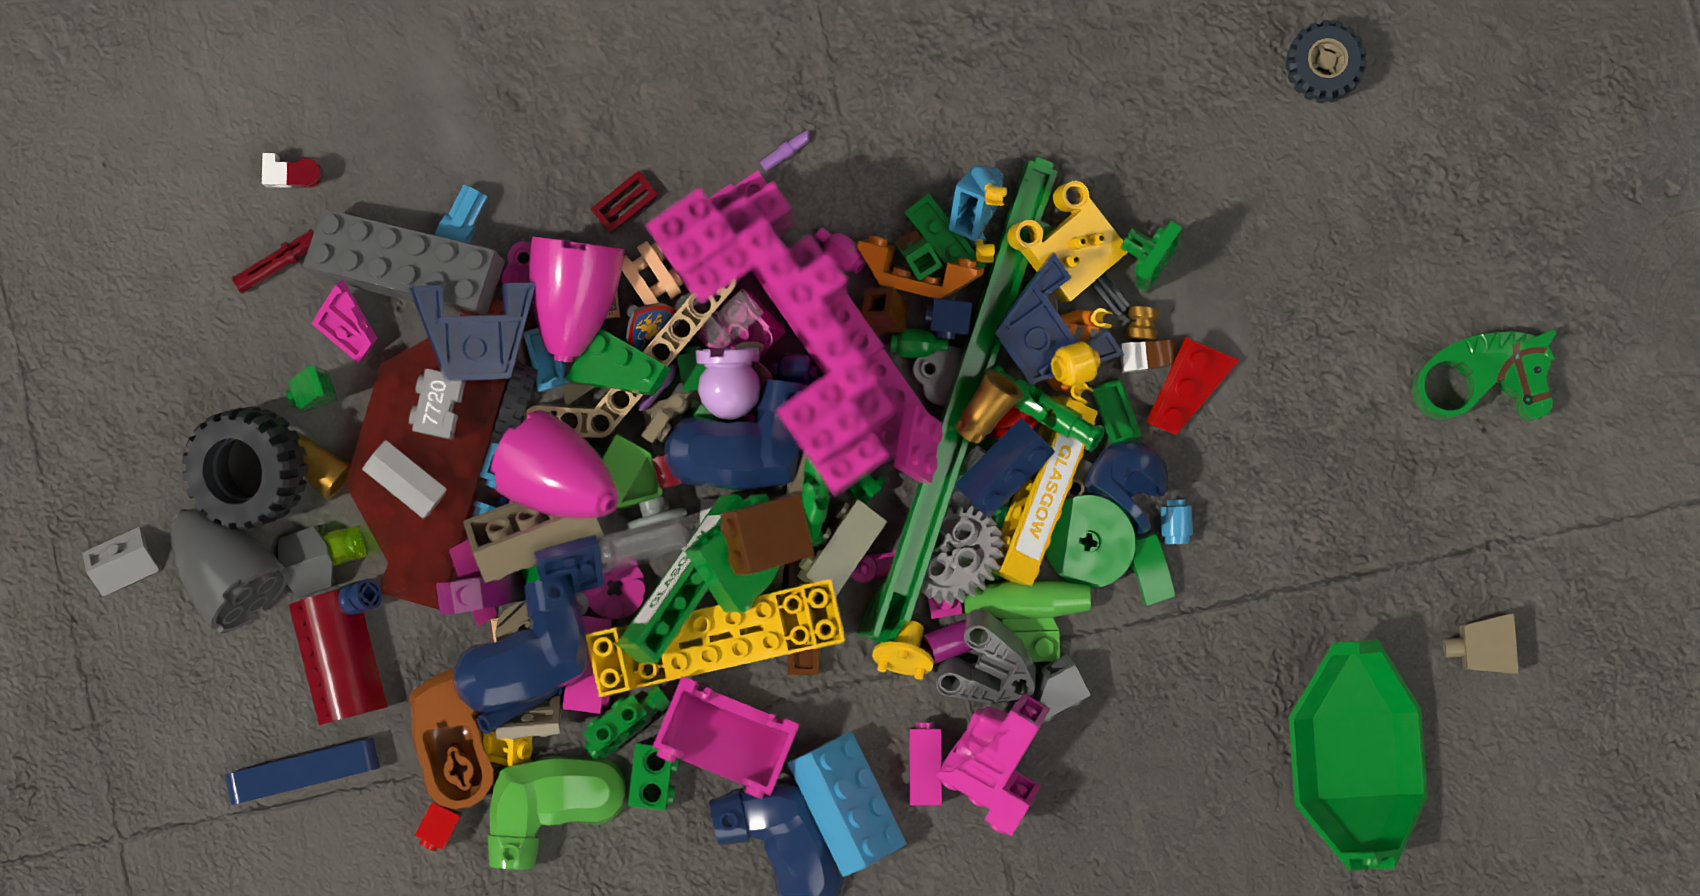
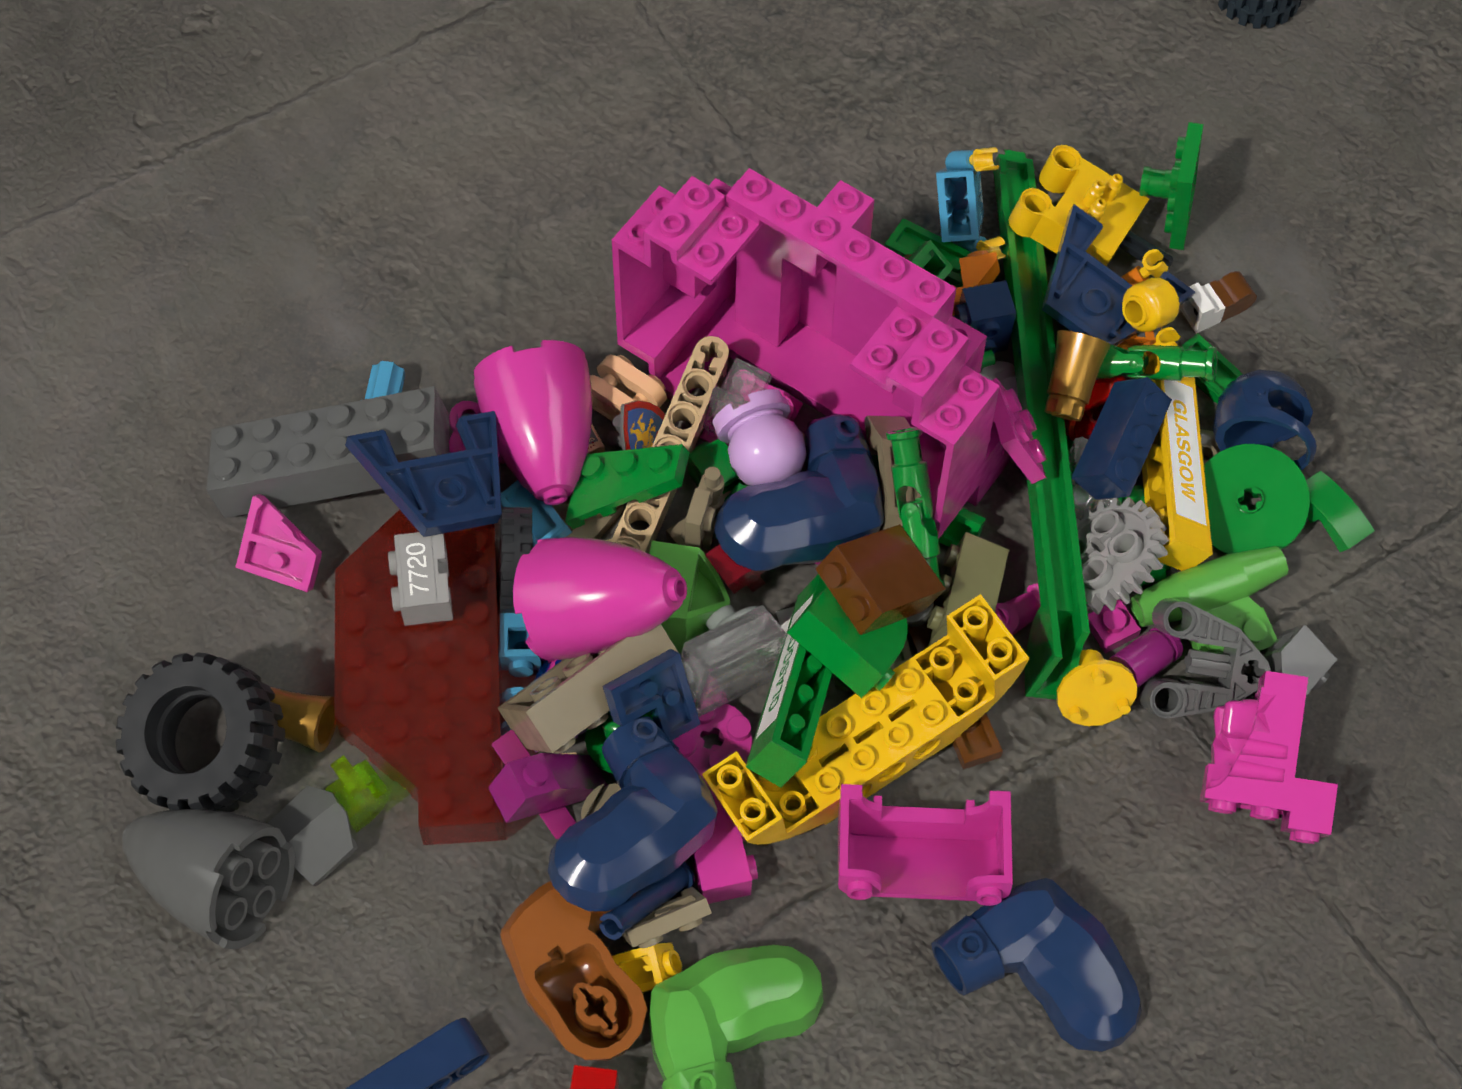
camera: 25 degrees left, 25 degrees down
(119, 562) = (68, 917): light grey panel -> none
(264, 268) = (165, 521): dark red pin -> none
(299, 174) = (163, 418): leg -> none
(311, 389) = (257, 622): green slope -> none
(337, 658) = (387, 930): dark red brick -> none
(360, 596) = (393, 840): dark blue wheel -> none
(404, 479) = (409, 673): light grey piece -> none
(617, 192) = (561, 316): dark red tile -> none
(619, 722) = (774, 894): green brick -> none
(643, 775) = (838, 942): green brick -> none
(647, 400) = (677, 504): medium lavender piece -> none
(847, 804) = (1108, 879): dark azure brick -> none
(925, 764) = (1178, 812): dark pink brick -> none
(1142, 323) = (1194, 266): pearl gold wheel -> none
(1176, 522) = (1337, 453): dark azure brick -> none
(1189, 383) = (1277, 311): red wing -> none

